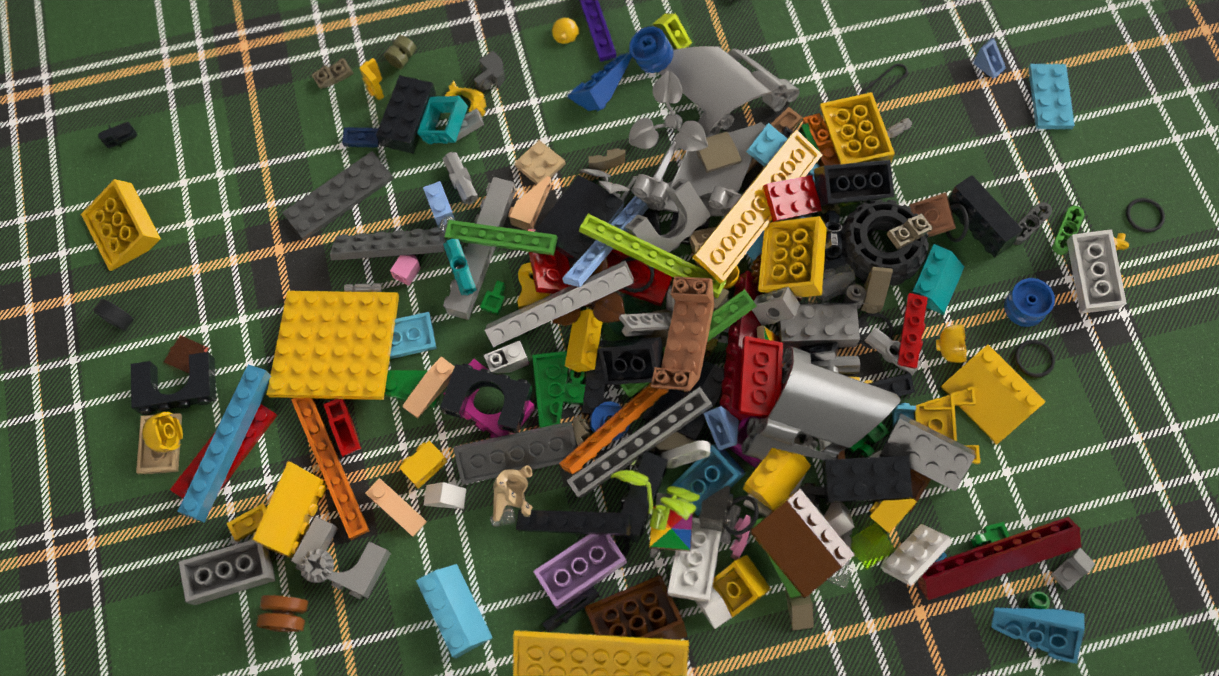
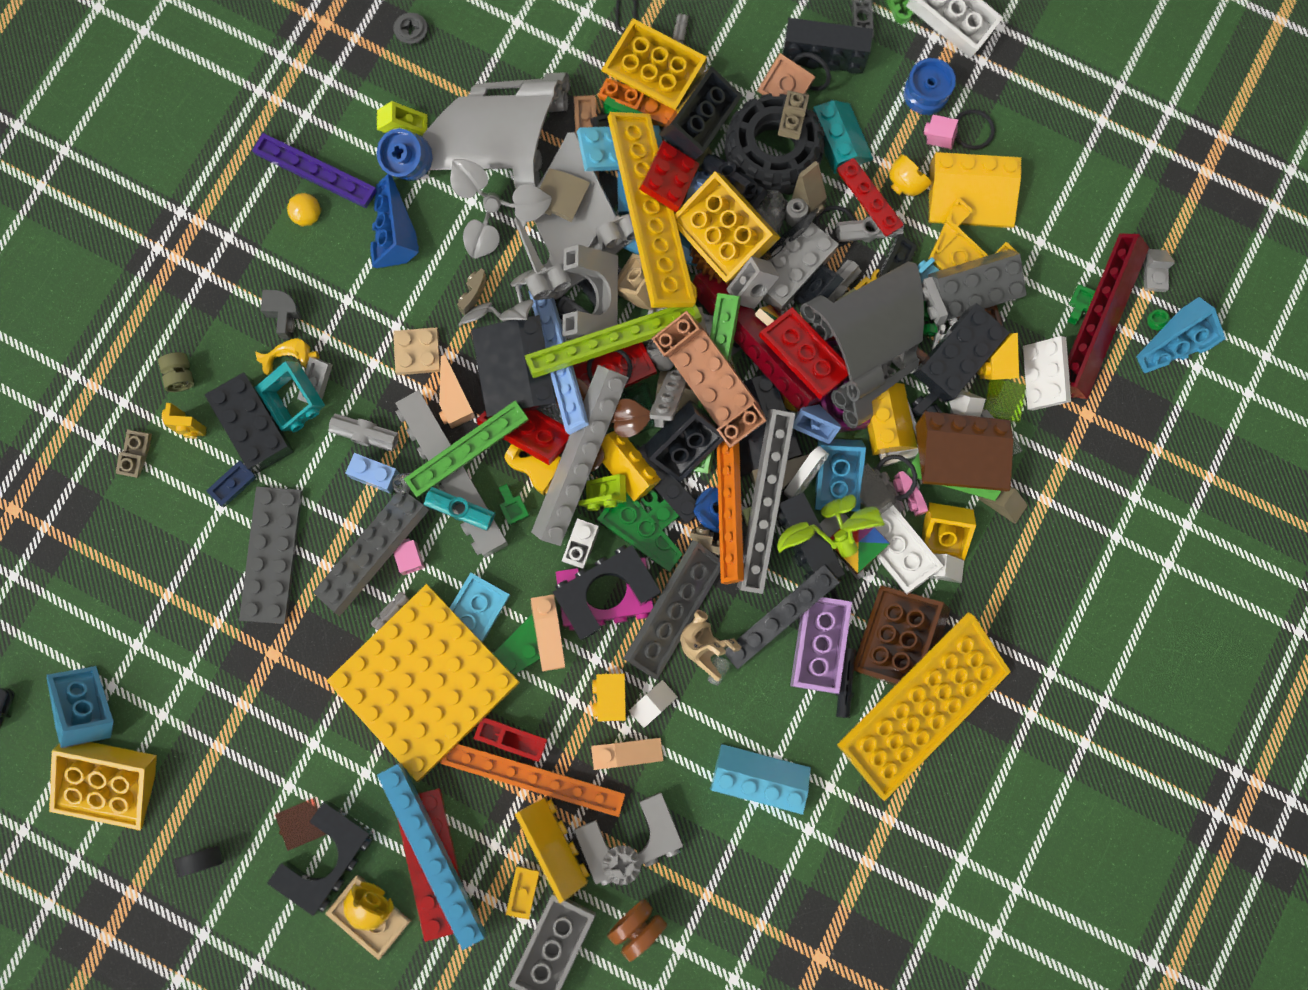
camera: 55 degrees left, 10 degrees up
(154, 173) = (79, 706): none -> dark azure slope
(553, 343) = (604, 492): none -> lime bracket
(881, 439) = (936, 308): none -> light grey plate
(1008, 338) = (941, 131): none -> bright pink brick

